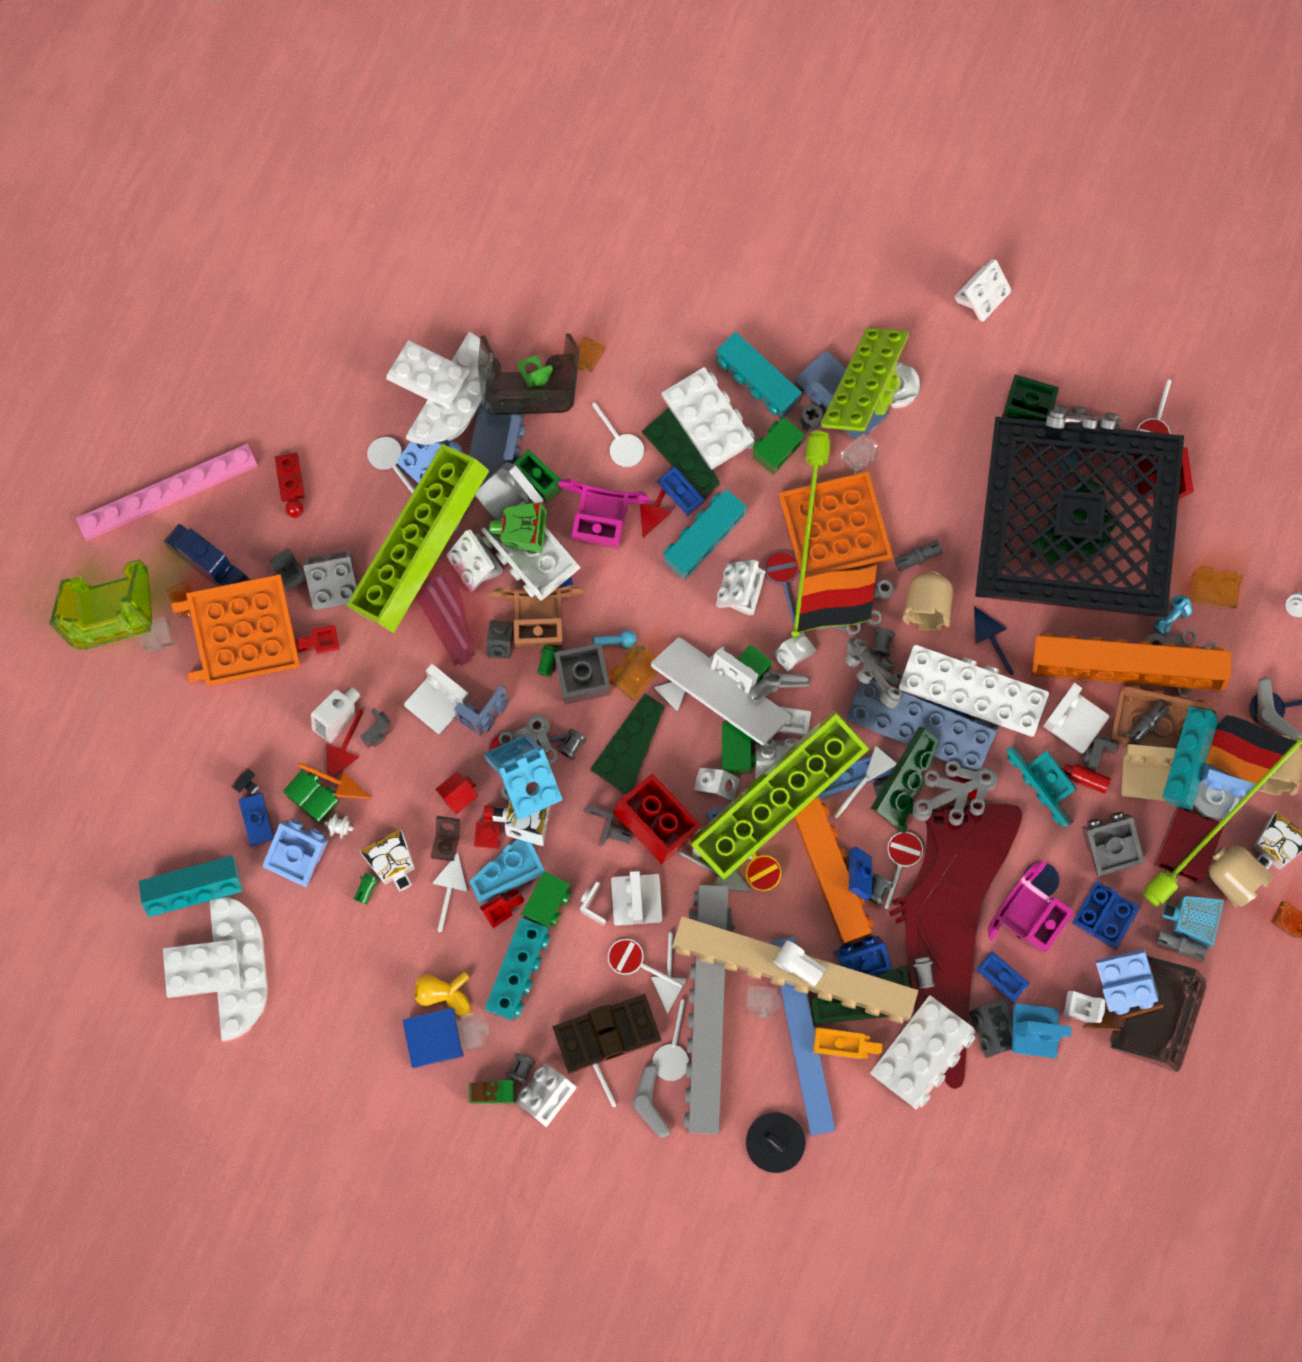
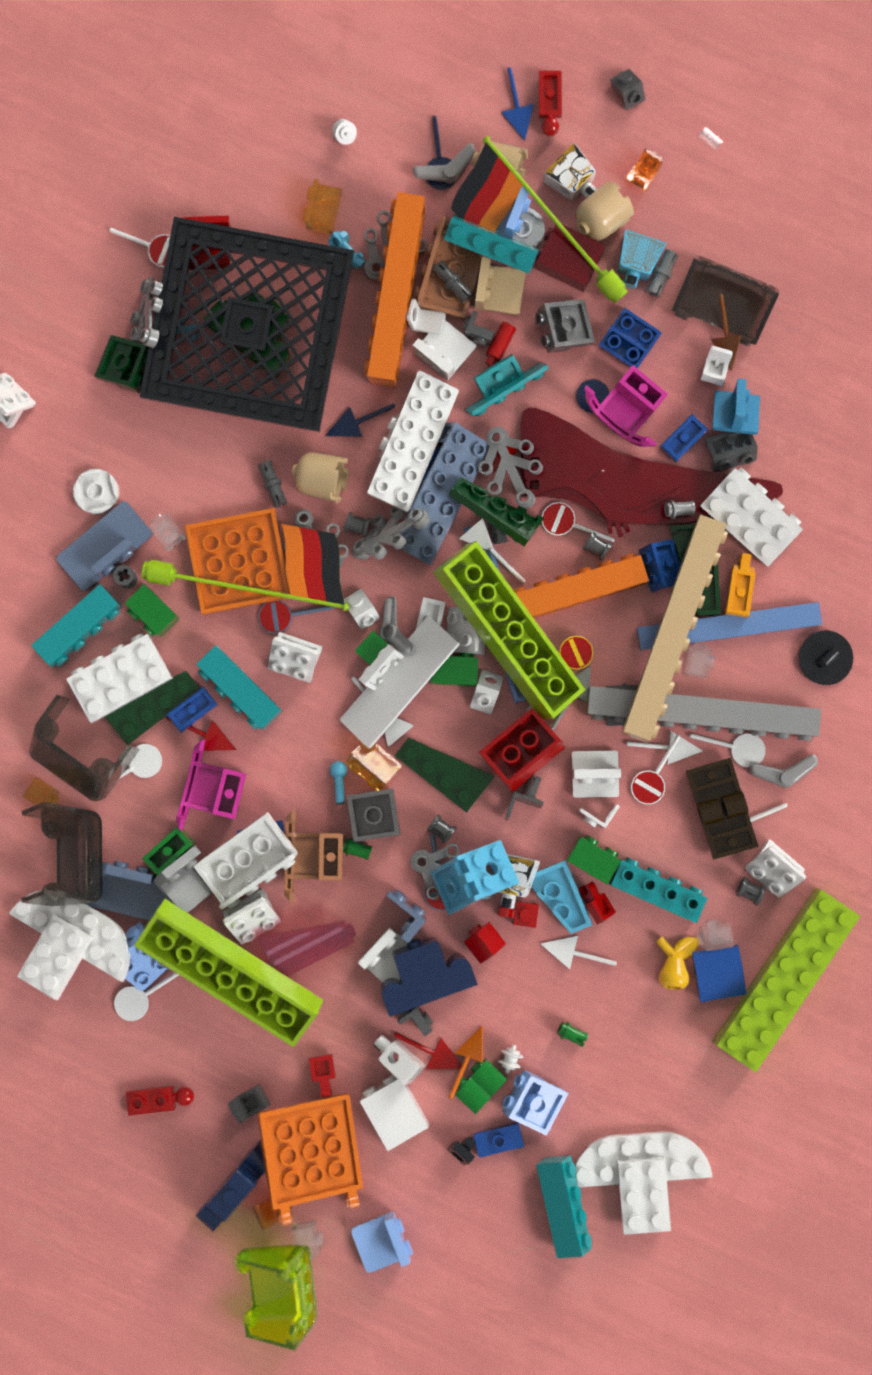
camera: 85 degrees left, 10 degrees up
(152, 707) = (382, 1242): none -> light blue bracket
(166, 492) = (158, 1226): bright pink plate -> none
(282, 711) = (393, 1112): none -> white brick
(330, 579) = (260, 1061): light grey bracket -> none
(390, 859) = (546, 1008): torso -> none
(420, 733) = (424, 976): none -> dark blue brick
(429, 1109) = (786, 979): none -> lime brick
(445, 840) = (530, 954): clear smoke bracket -> none
(492, 1092) = (772, 919): leg -> none
(499, 639) = (331, 895): dark grey bracket -> none
(522, 527) = (223, 868): bright green torso -> none
(537, 377) = (66, 845): bright green bracket -> none
(603, 400) = (91, 782): none -> clear smoke windscreen
(793, 960) = (672, 626): white piece -> none
(860, 873) = (583, 561): blue plate -> none
(868, 380) = (94, 518): lime bracket -> none
(1105, 697) = (425, 320): none -> white bracket
(1127, 981) = (697, 323): light blue plate -> none

